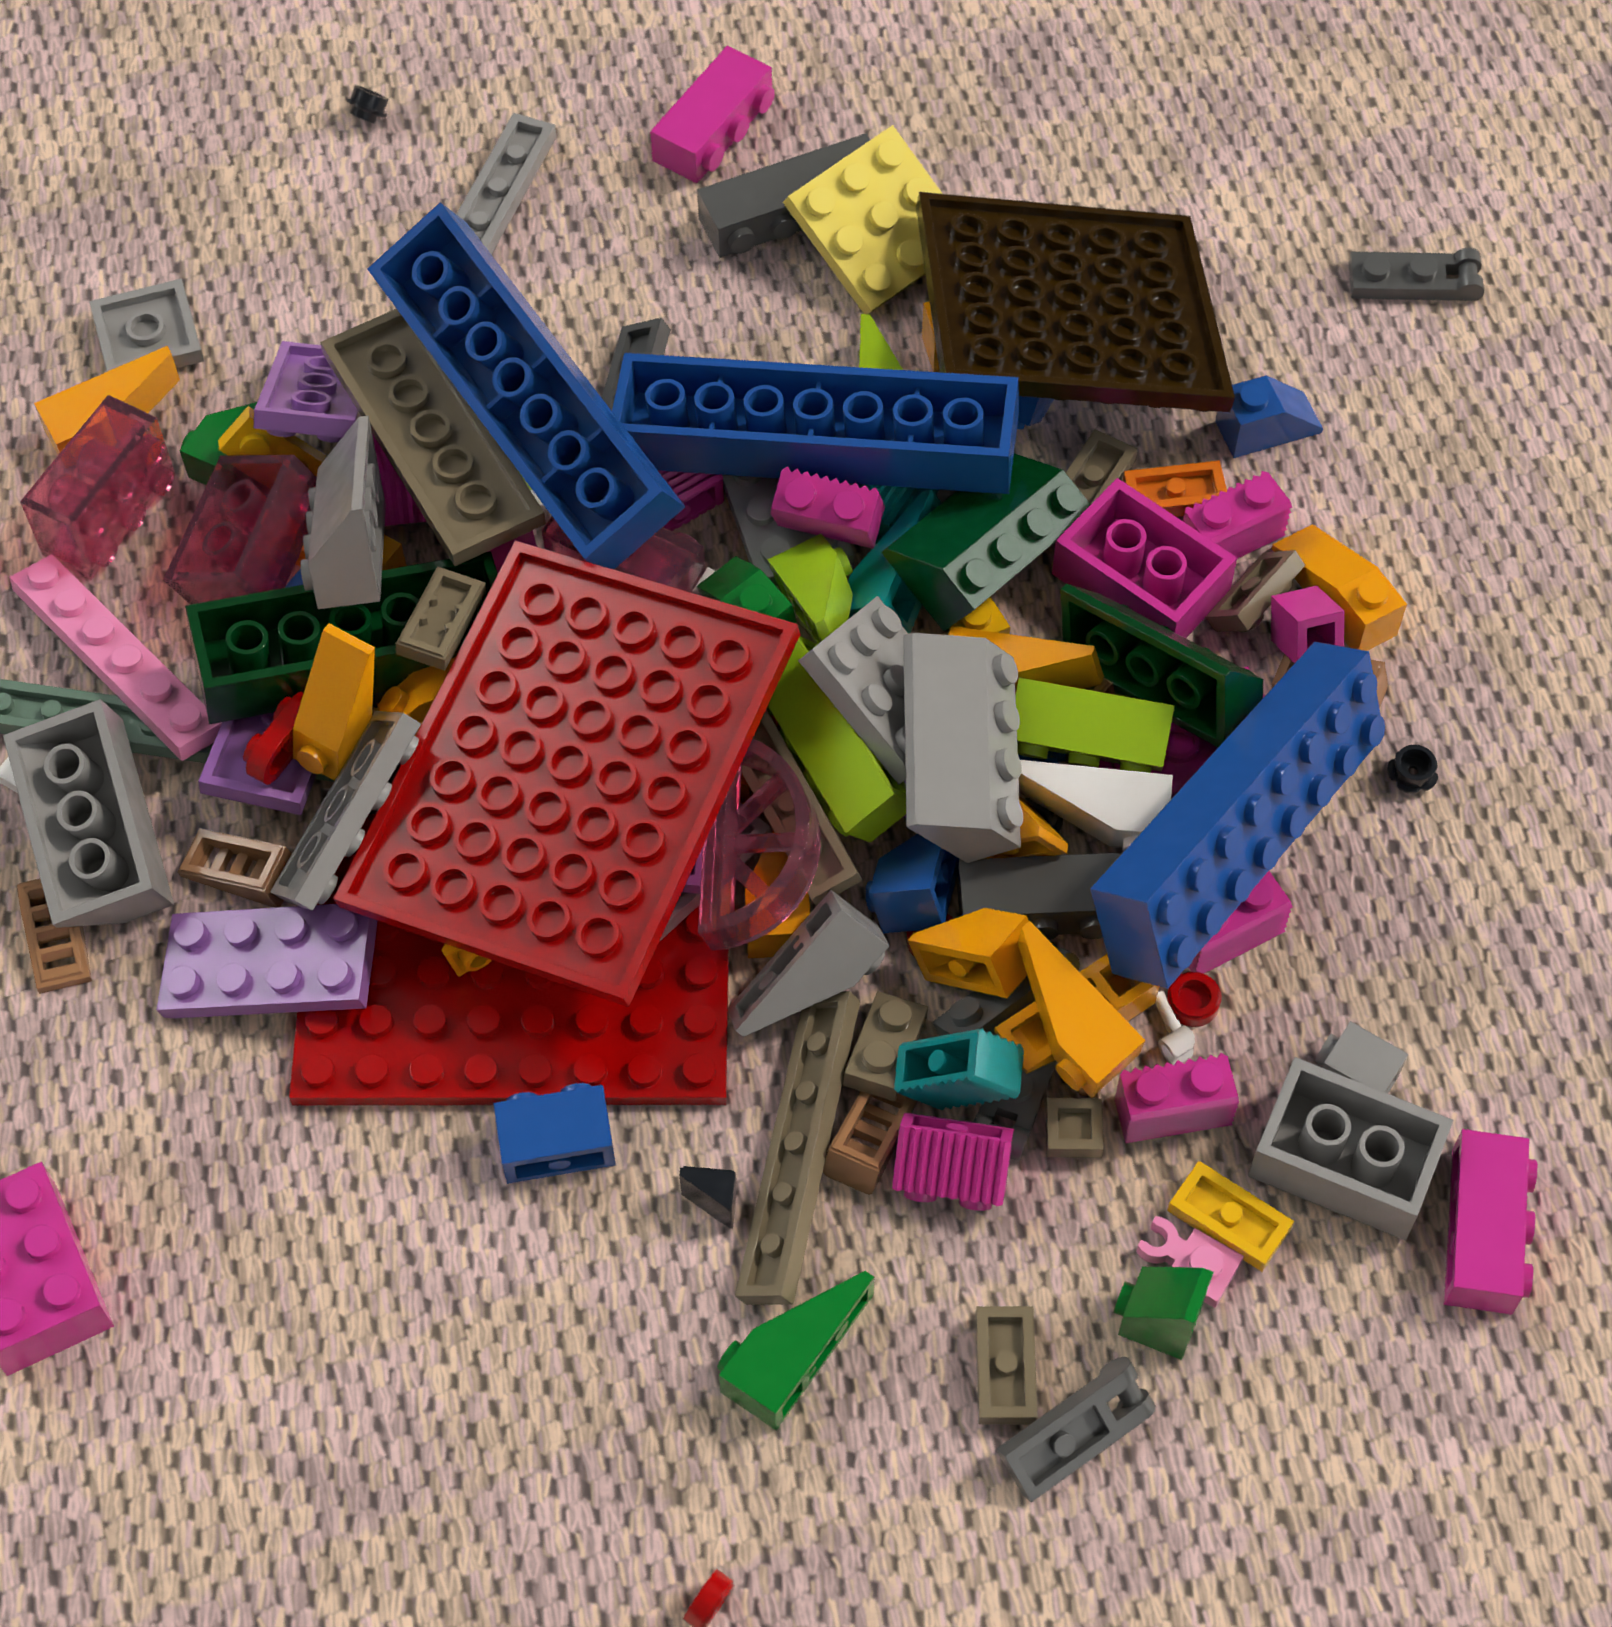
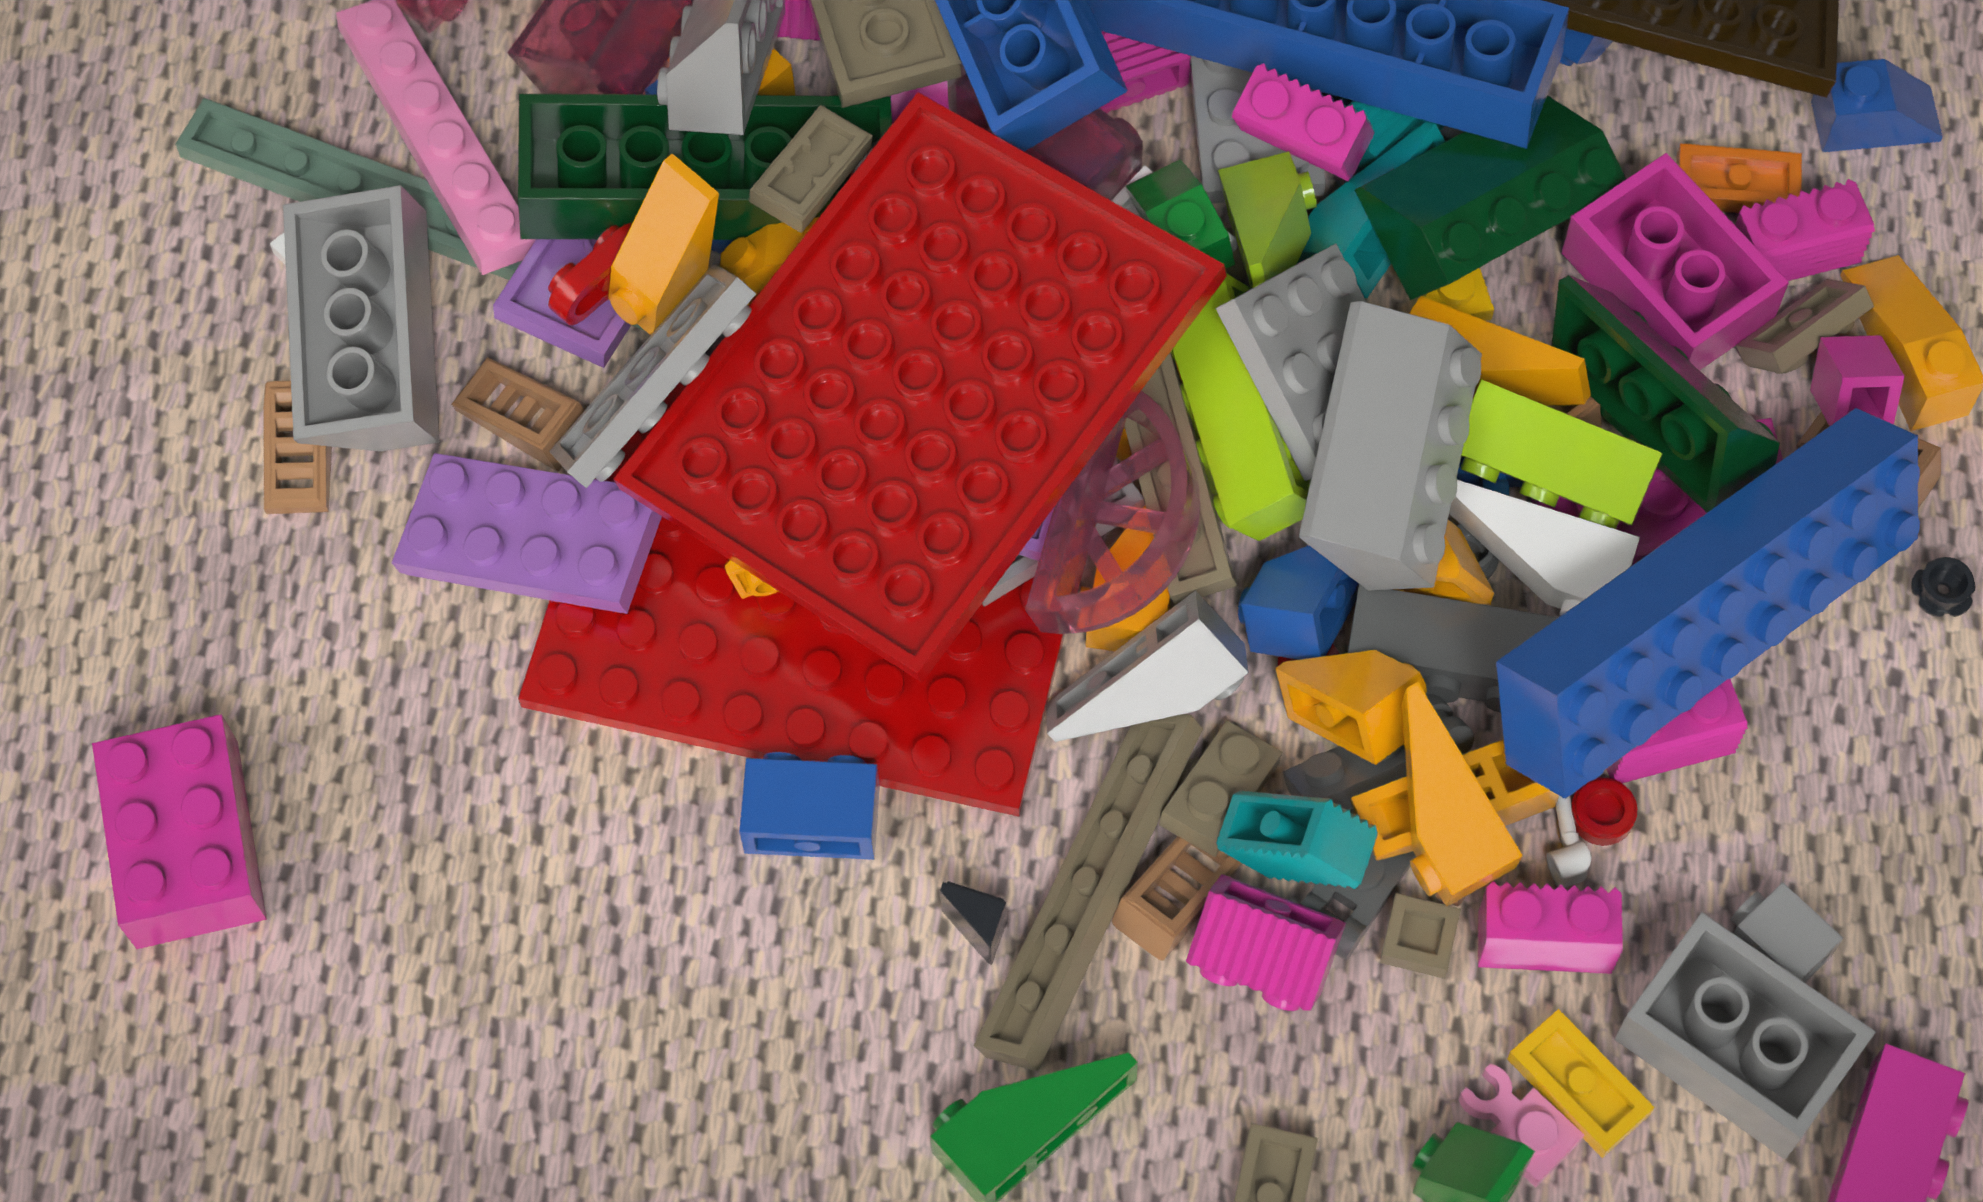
camera: 15 degrees right, 5 degrees up
(1100, 463) = (1652, 129): dark tan plate -> none

